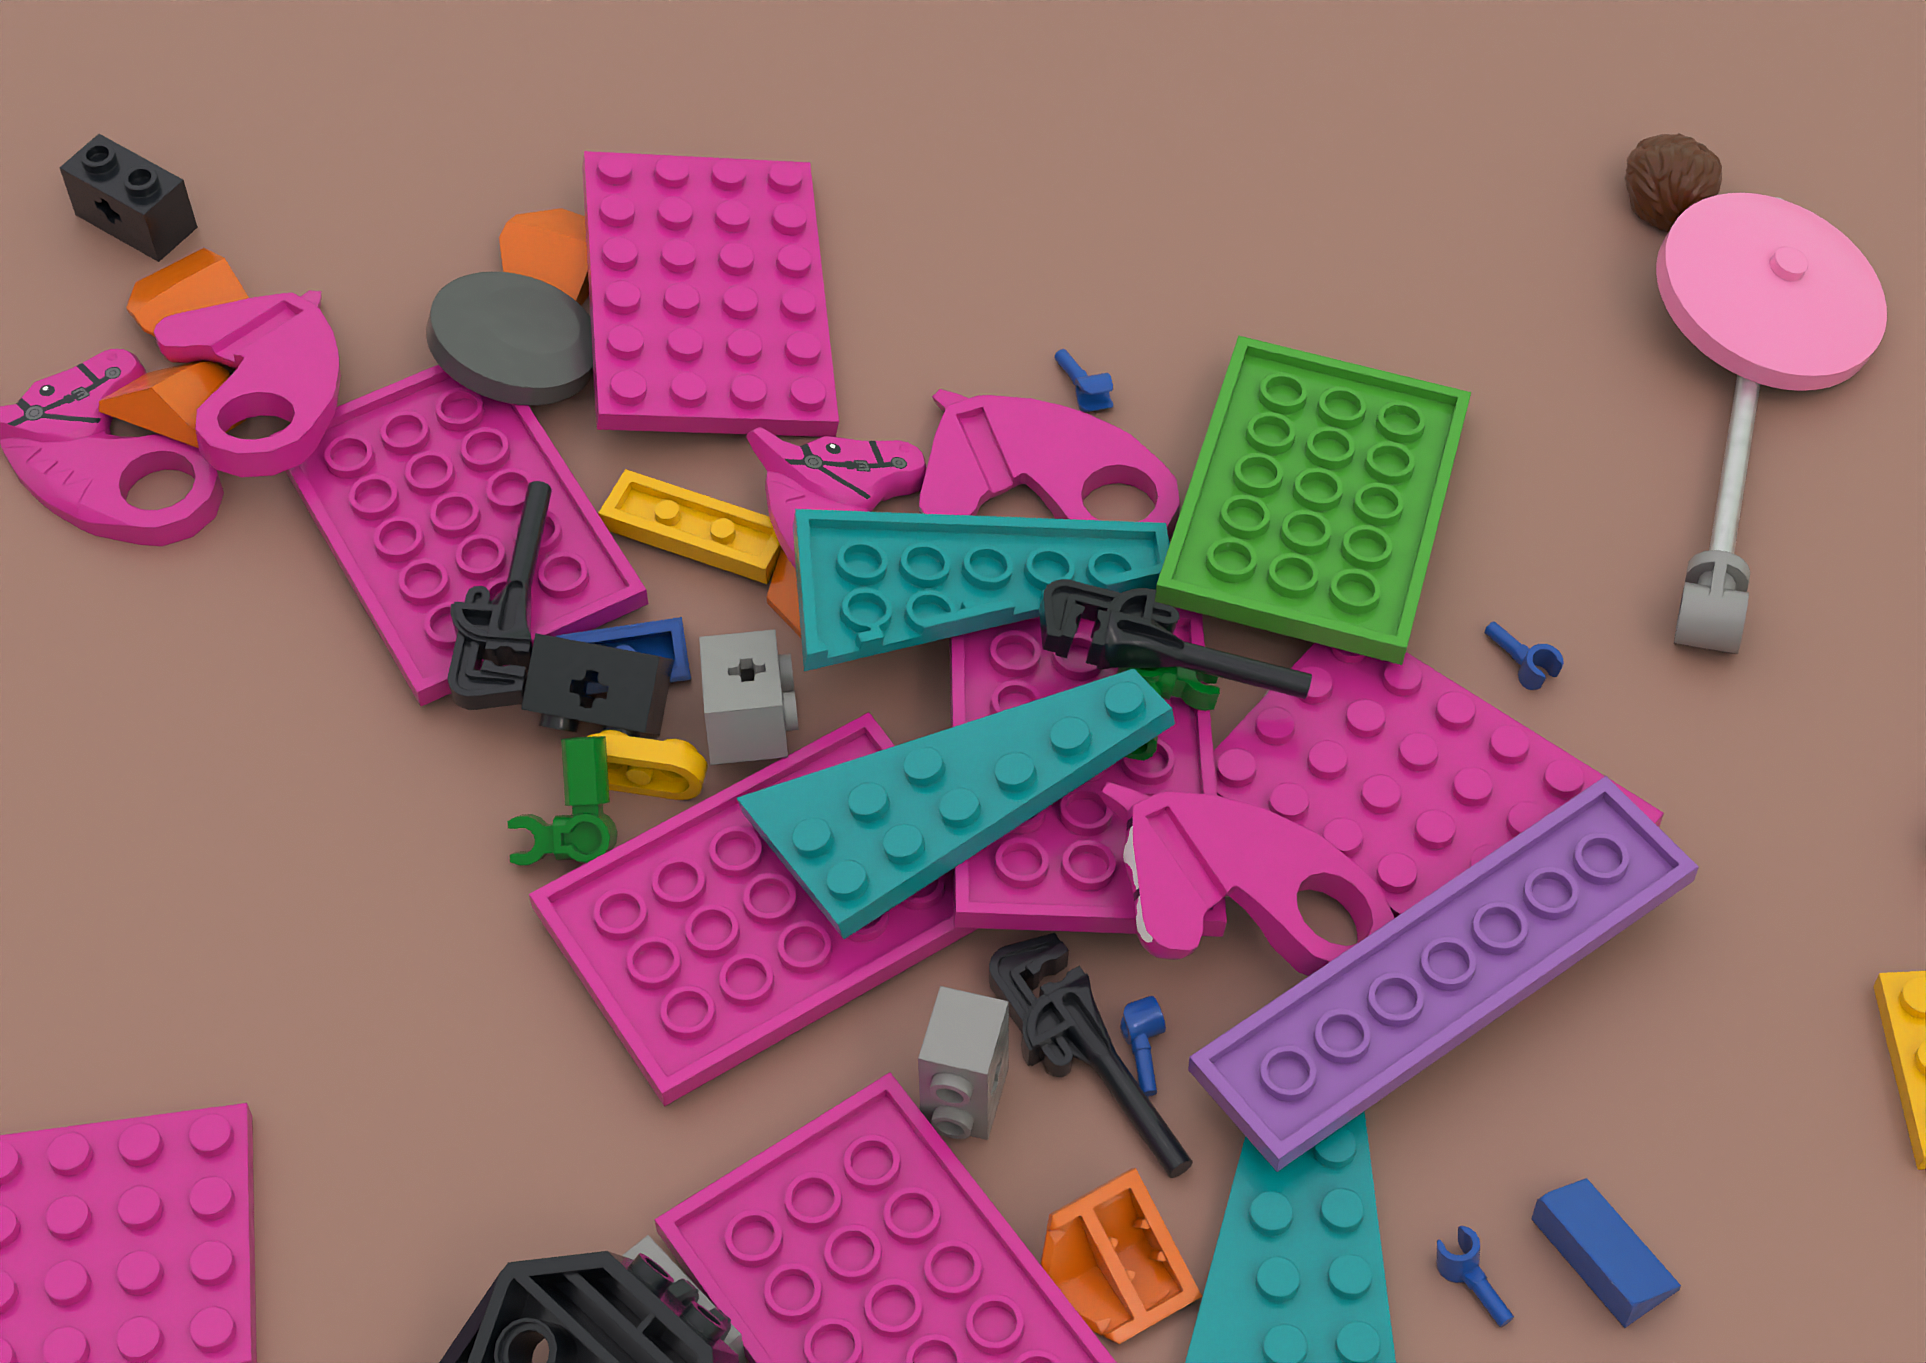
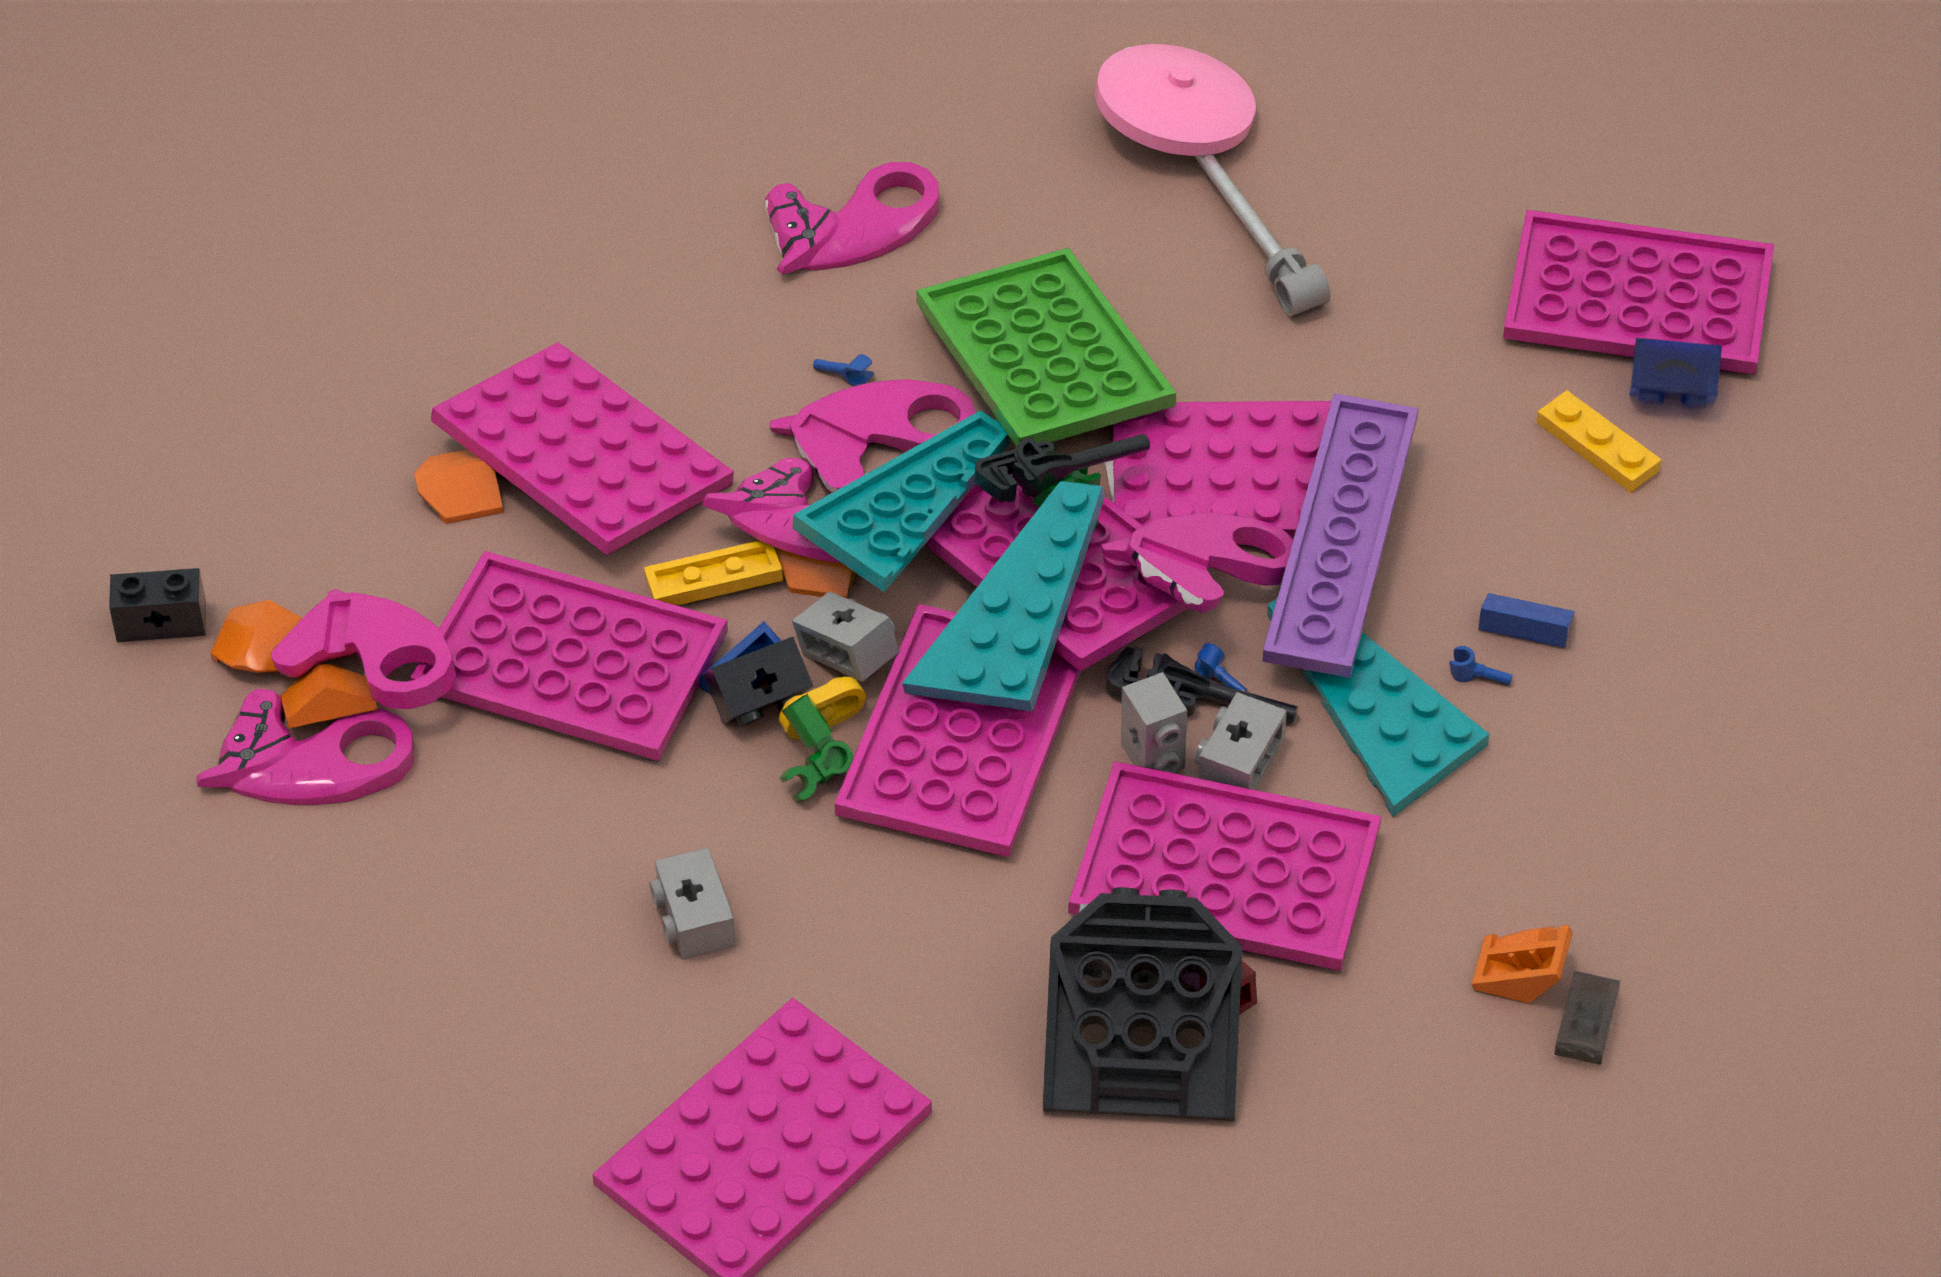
camera: 40 degrees left, 5 degrees down
(264, 906) = (693, 903): none -> light grey brick
(500, 627) = (672, 684): black piece -> none
(511, 338) = (498, 538): dark grey piece -> none
(1058, 1159) = (1242, 742): none -> light grey brick
(1117, 1259) = (1310, 766): orange slope -> none
(1215, 219) = (861, 230): none -> dark pink animal
(1538, 655) = (1234, 370): blue hand -> none
(1669, 176) = (1062, 70): reddish brown hair -> none

